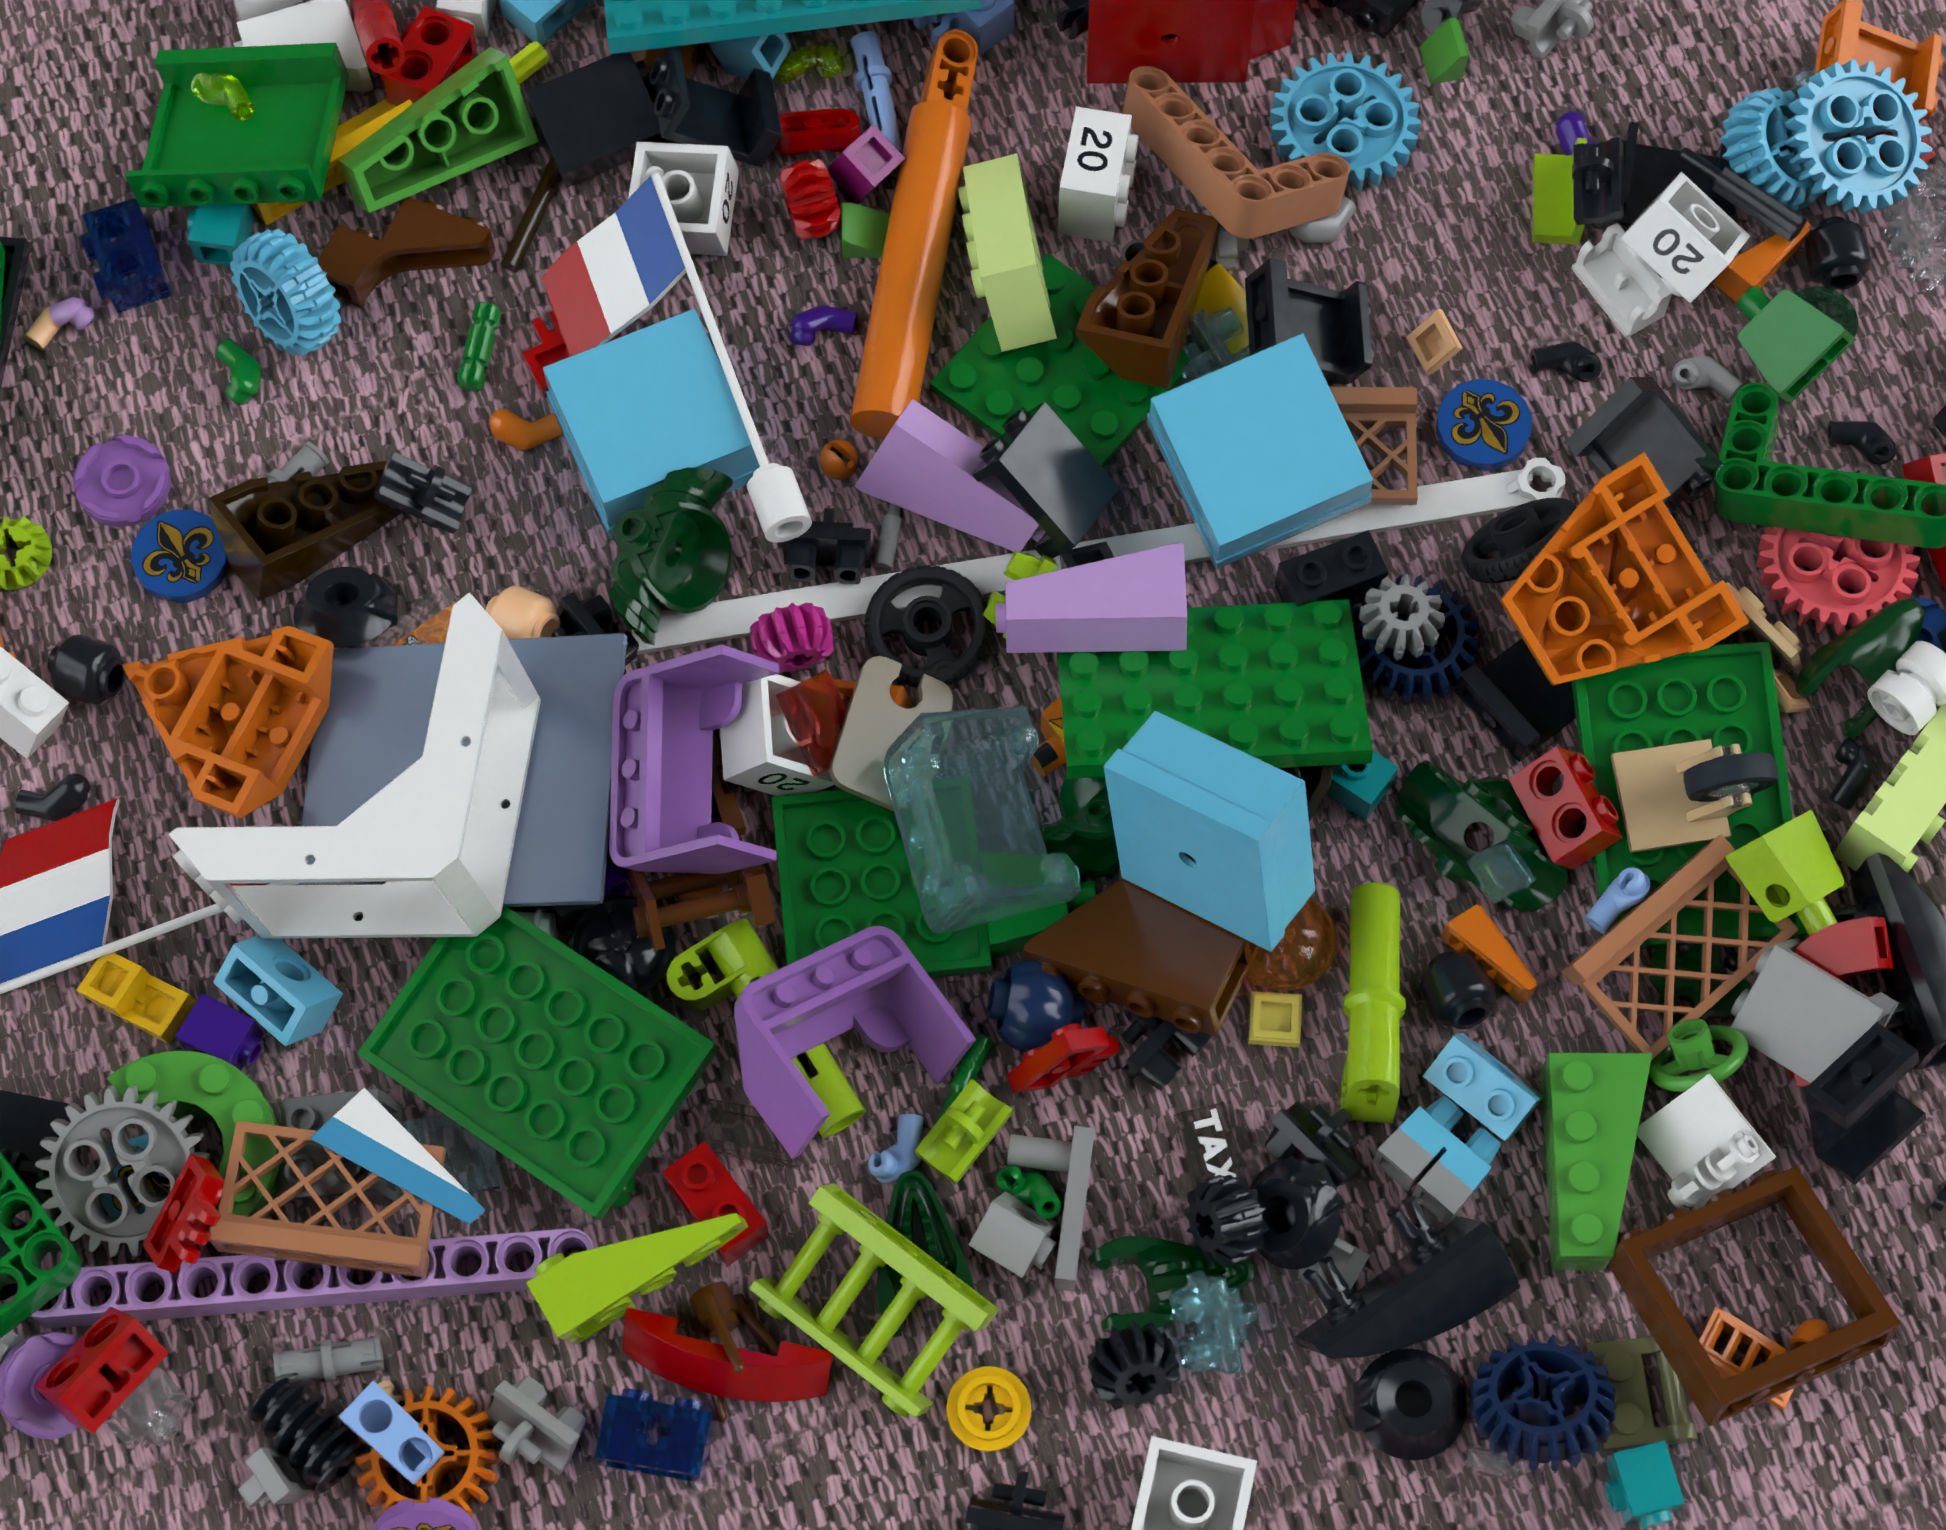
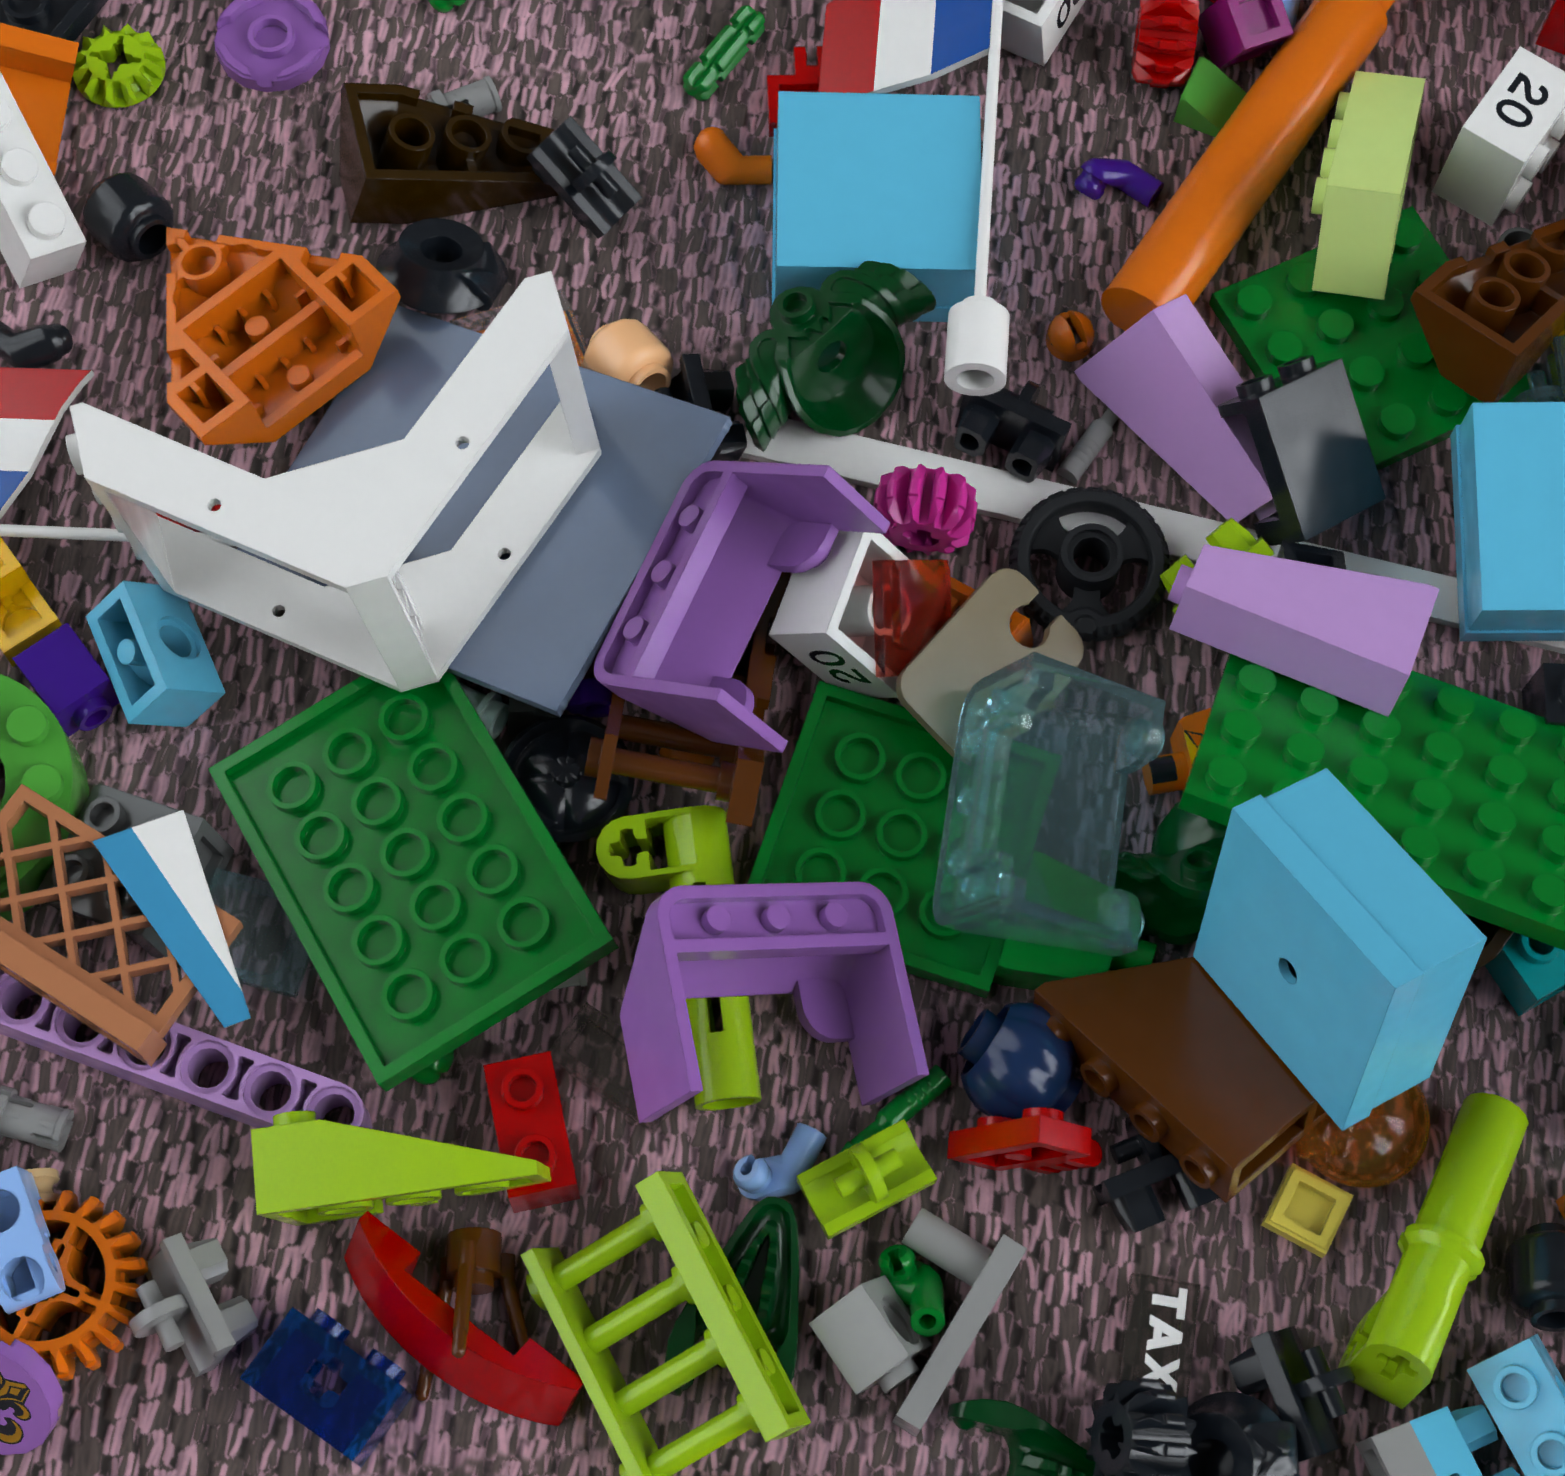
camera: 20 degrees right, 0 degrees up
(179, 556) = (290, 142): blue tile -> none

